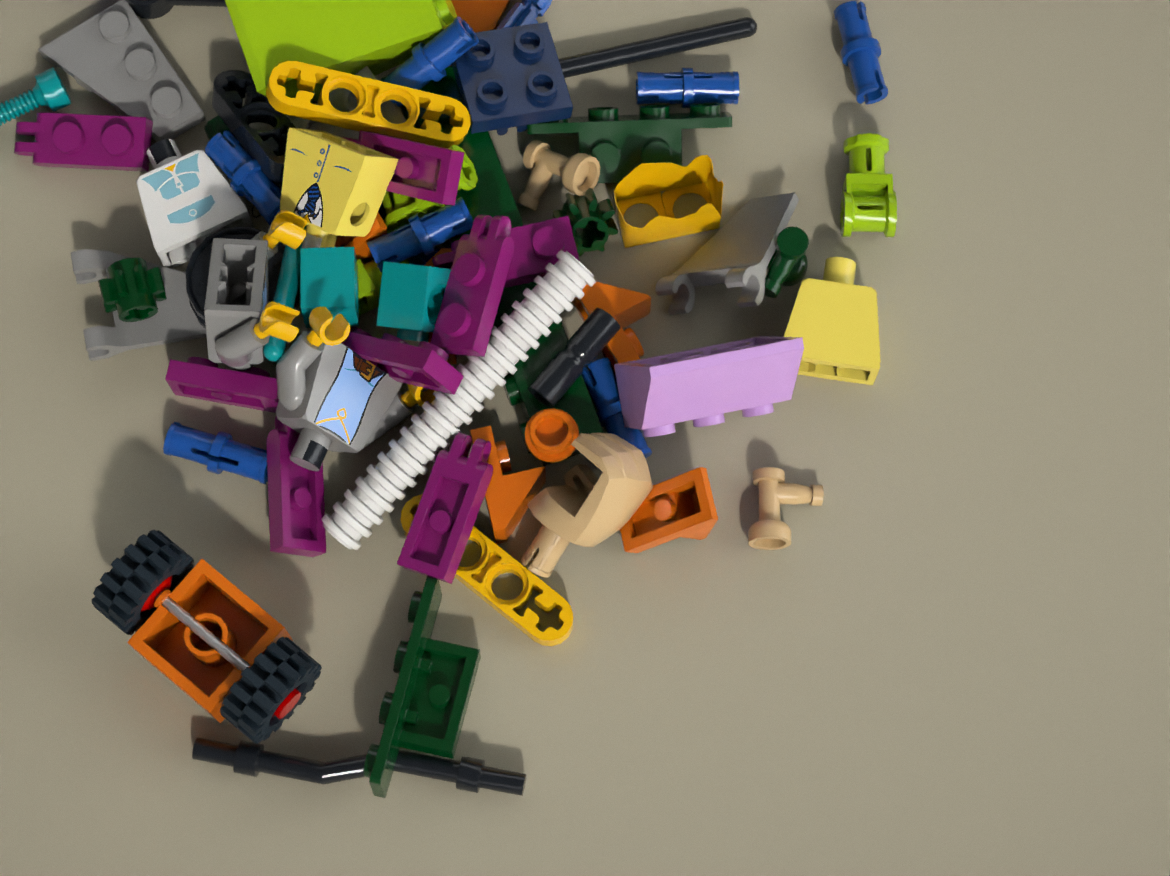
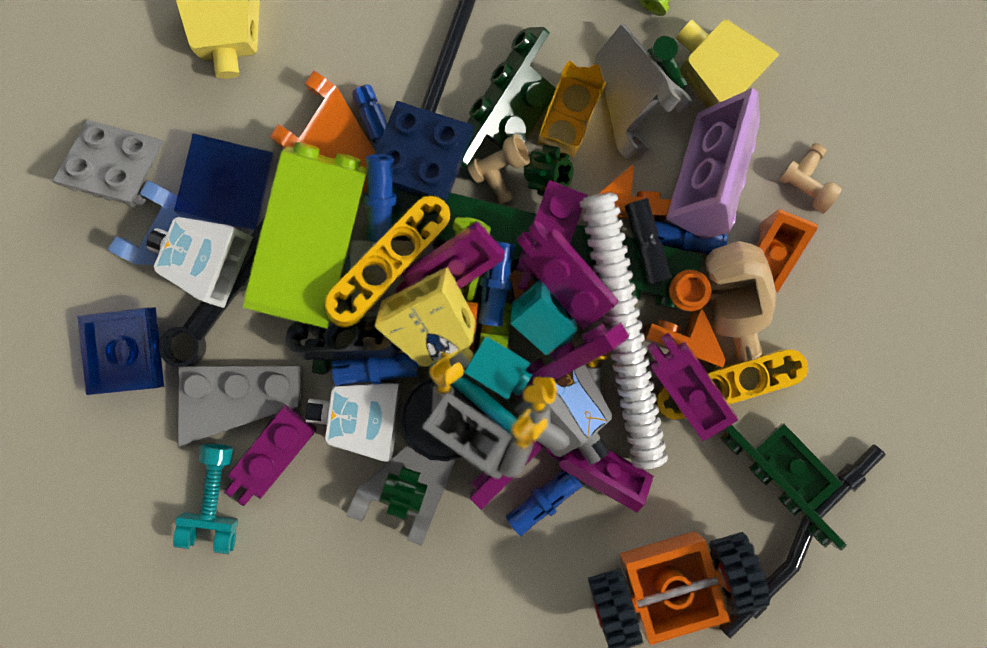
camera: 60 degrees left, 15 degrees up
(687, 87) = (496, 41): blue pin -> none

